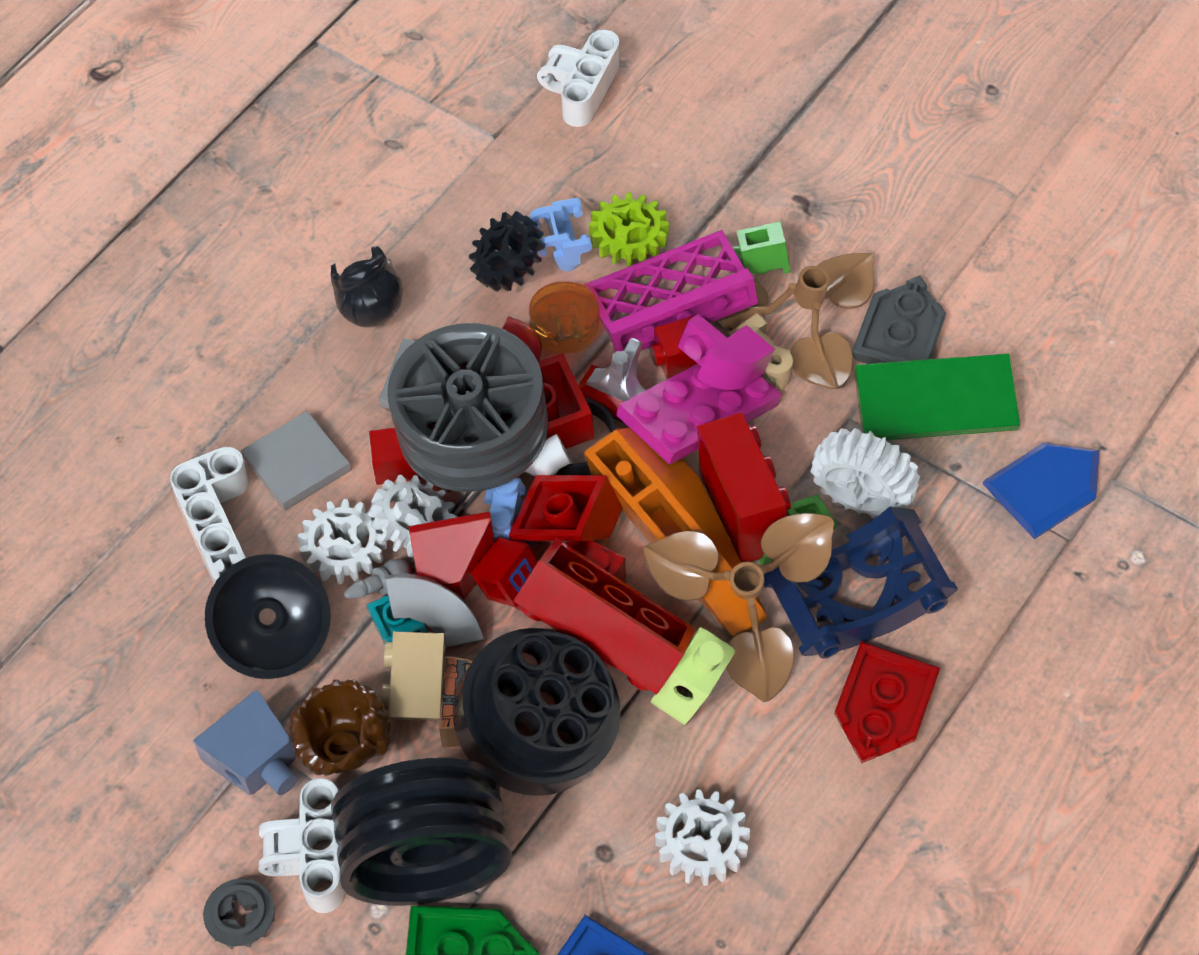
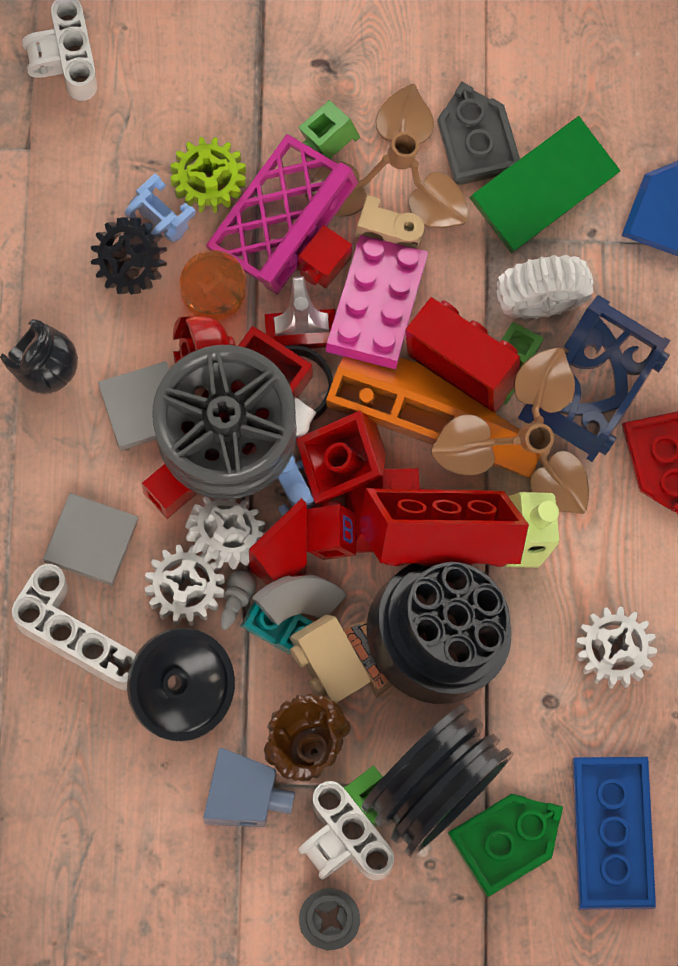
camera: 40 degrees left, 15 degrees up
(725, 361) = (379, 254): dark pink brick -> none

